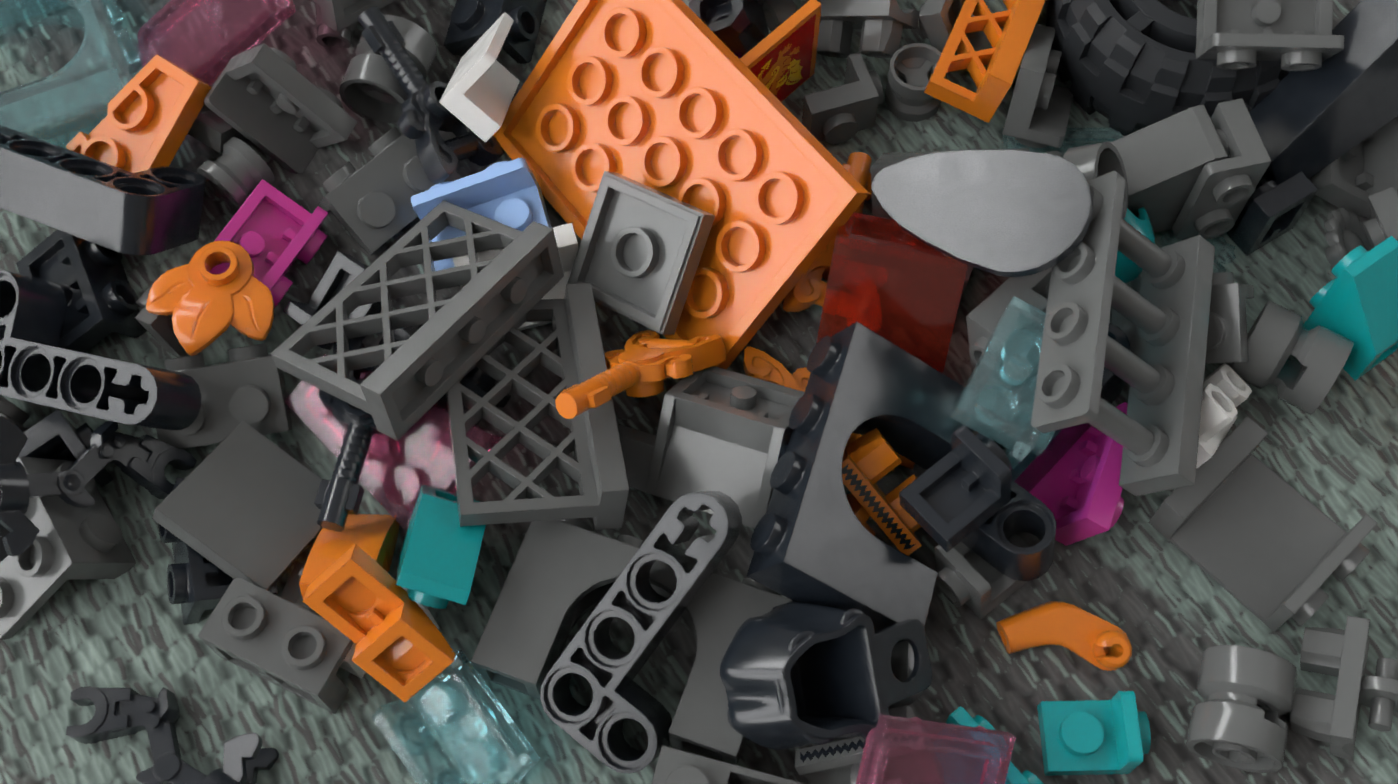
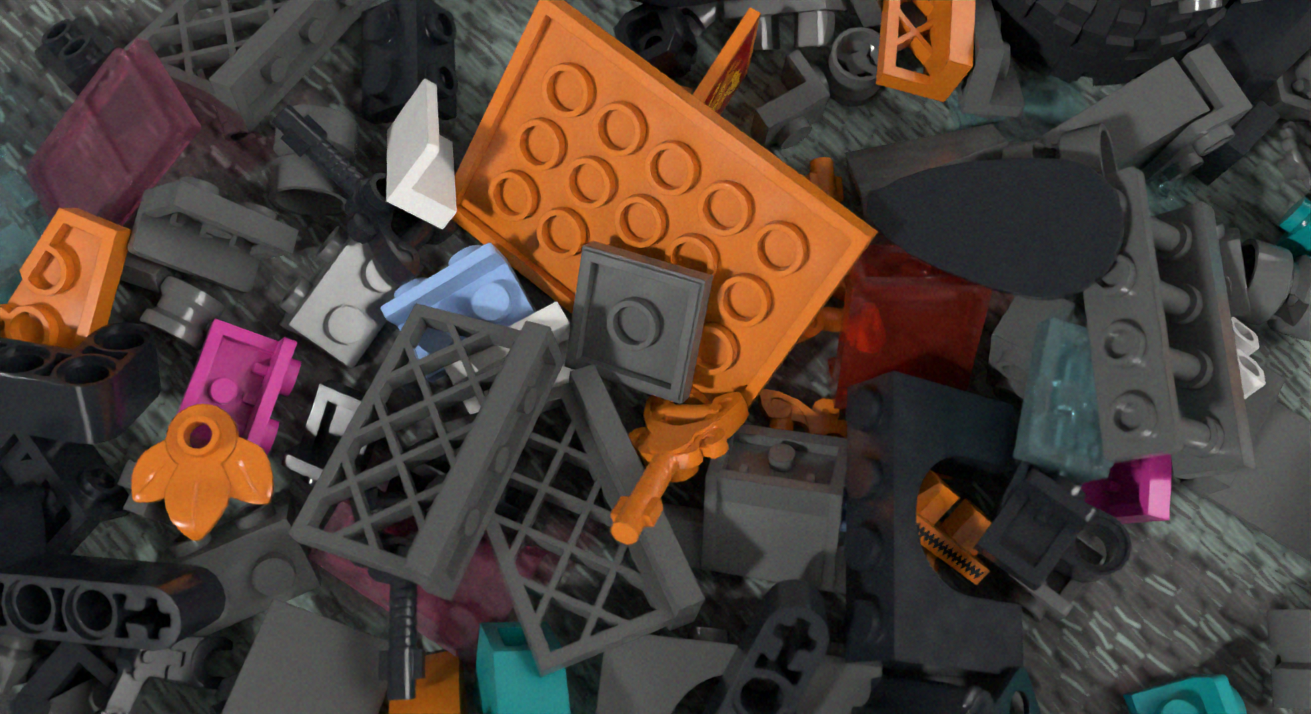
camera: 20 degrees left, 10 degrees up
(1070, 627) = (1139, 612): orange arm -> none

